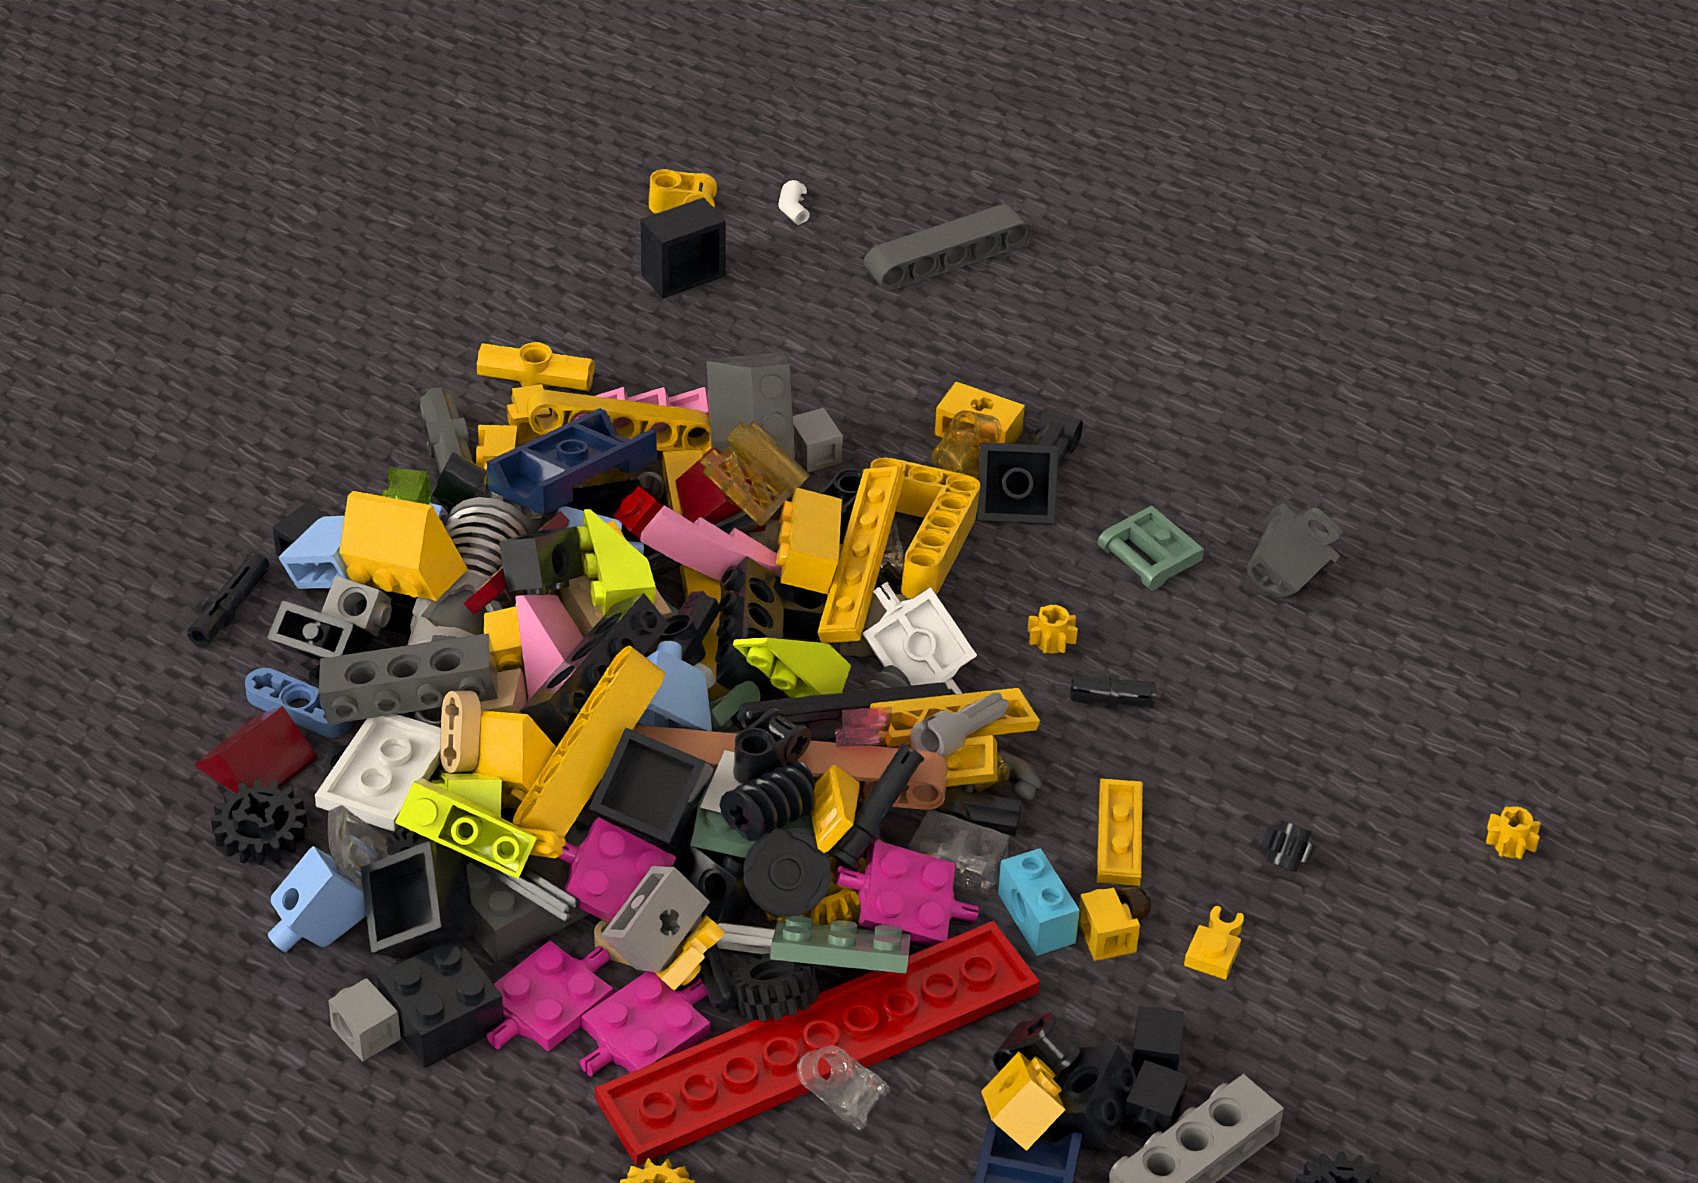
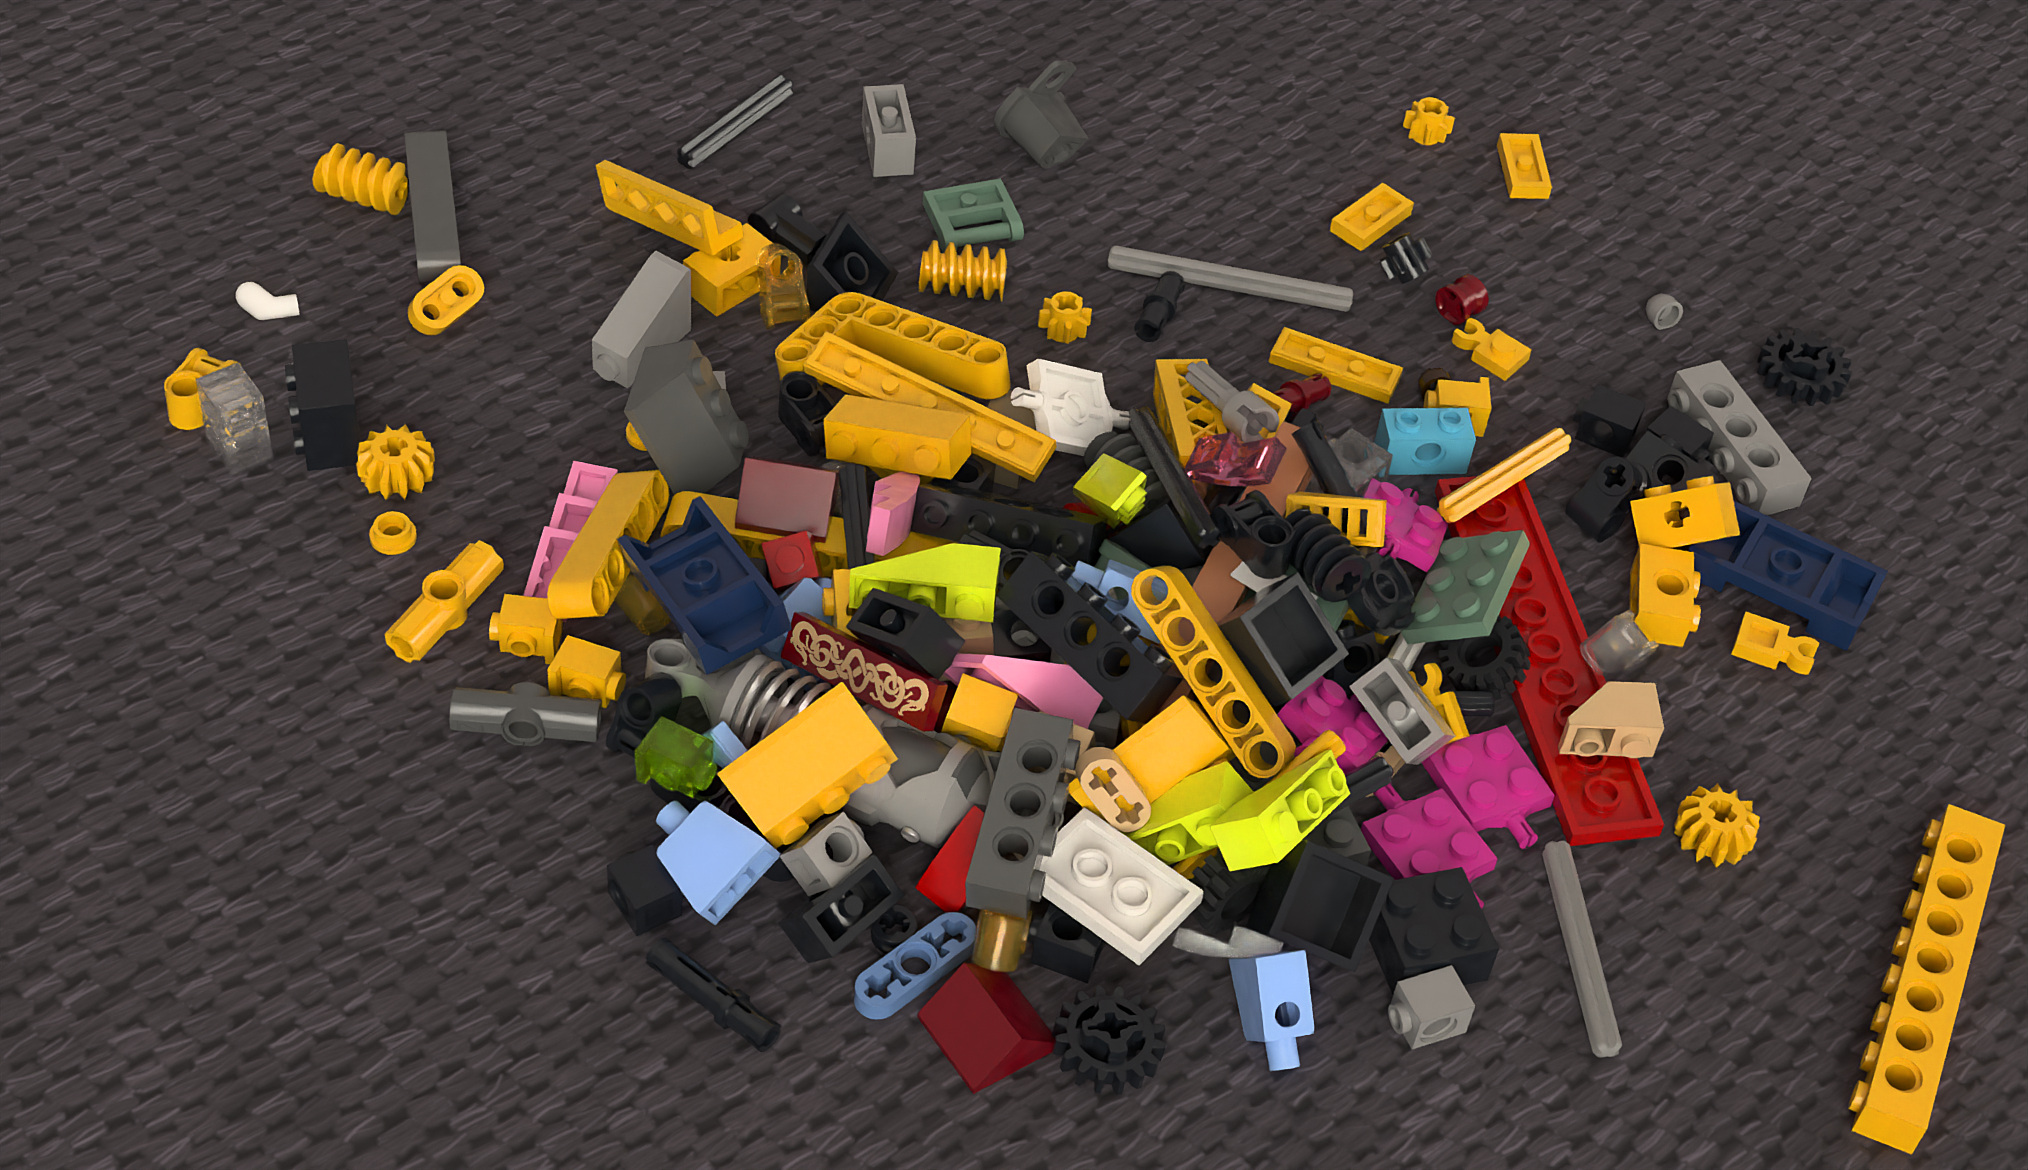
camera: 75 degrees left, 5 degrees up
(313, 733) = (1000, 940): none -> clear yellow piece
(478, 1123) = (1582, 950): none -> light grey axle
(593, 327) = (392, 524): none -> yellow plate
(638, 197) = (234, 418): none -> clear brick
(660, 305) = (395, 461): none -> yellow gear
(728, 1084) = (1615, 722): none -> tan slope
(761, 463) = (783, 437): clear yellow piece -> none
(848, 280) = (443, 302): none -> yellow plate
(875, 383) = (648, 314): none -> light grey slope
(935, 1117) = (1664, 594): none -> yellow brick
(947, 196) = (362, 179): none -> yellow piece
(1011, 358) = (666, 209): none -> yellow fence
(1018, 961) = (1503, 475): none -> yellow axle
(1043, 800) = (1304, 392): none -> dark red pin
(1065, 551) = (963, 270): none -> yellow piece
(1173, 382) = (734, 121): none -> axle
(1187, 736) = (1232, 278): none -> light grey axle
(1208, 462) = (888, 130): none -> light grey brick
(1261, 901) = (1462, 299): none -> dark red wheel
(1341, 816) = (1371, 216): none -> yellow plate
(1348, 1073) = (1665, 308): none -> light grey hinge
(1505, 922) = (1524, 166): none -> yellow plate

